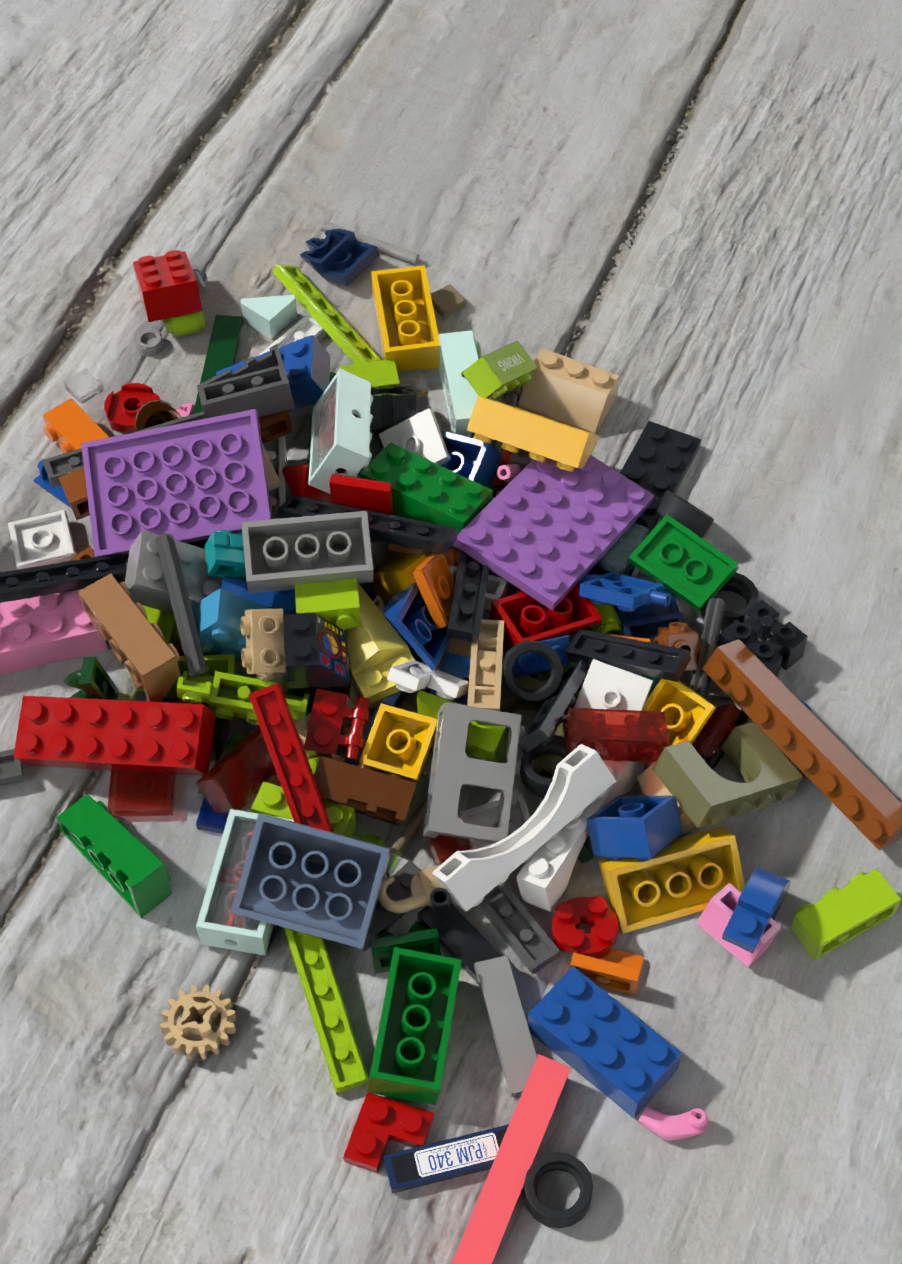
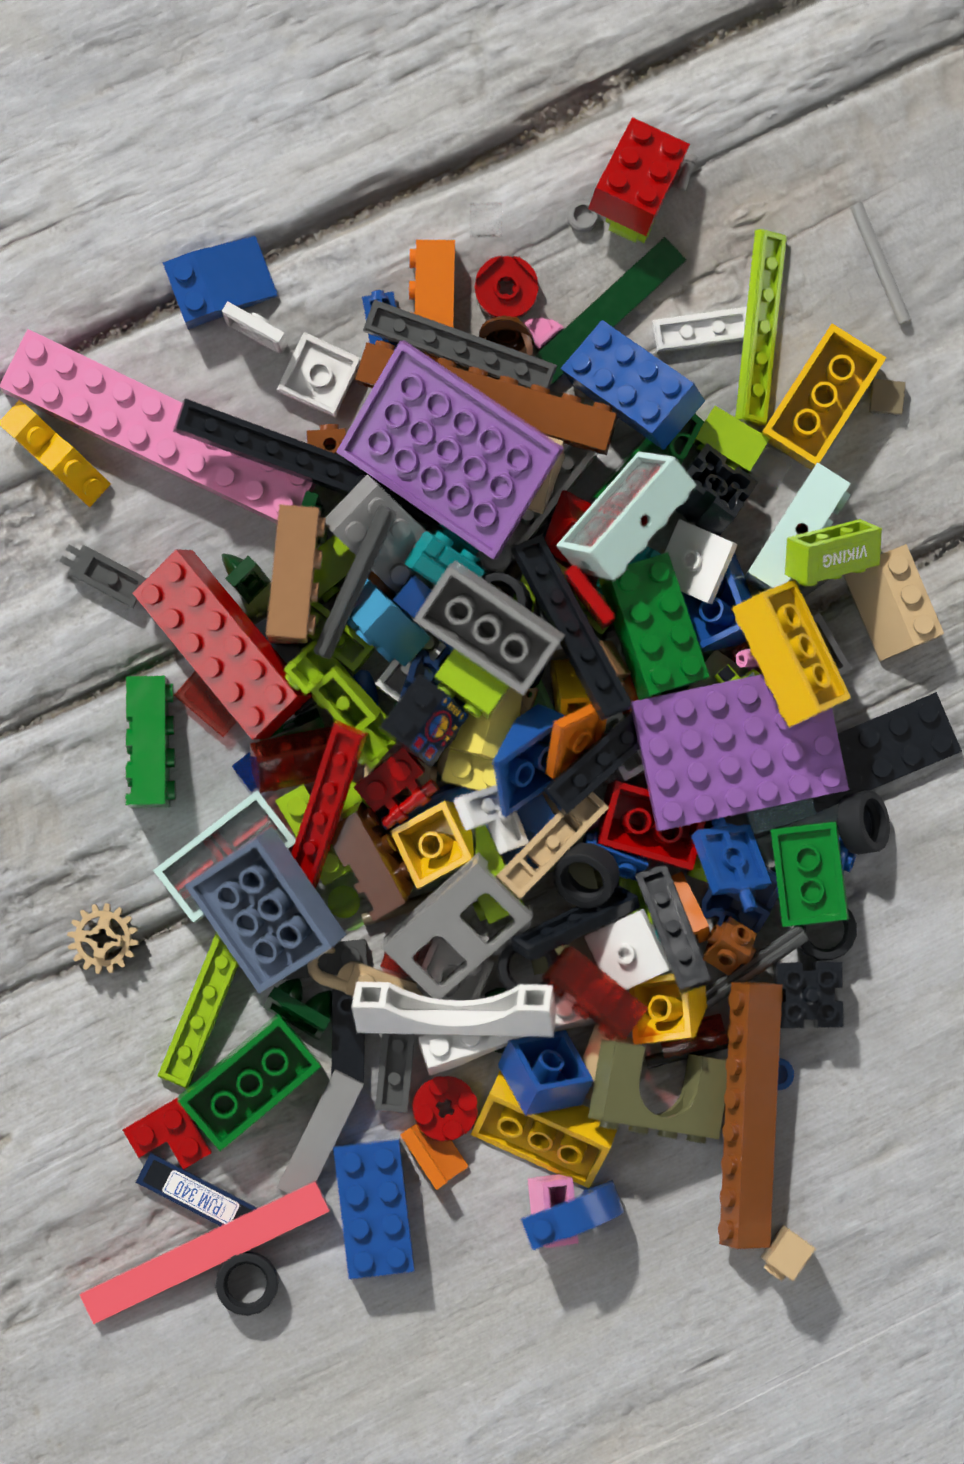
camera: 35 degrees right, 30 degrees up
(257, 386) = (582, 408): dark grey wedge -> none
(264, 642) = (392, 675): tan brick -> none
(269, 314) = (711, 280): light aqua slope -> none
(339, 256) = (833, 261): dark blue plate -> none
(676, 1126) = (370, 1311): bright pink arm -> none
(845, 913) = (644, 1267): lime brick -> none

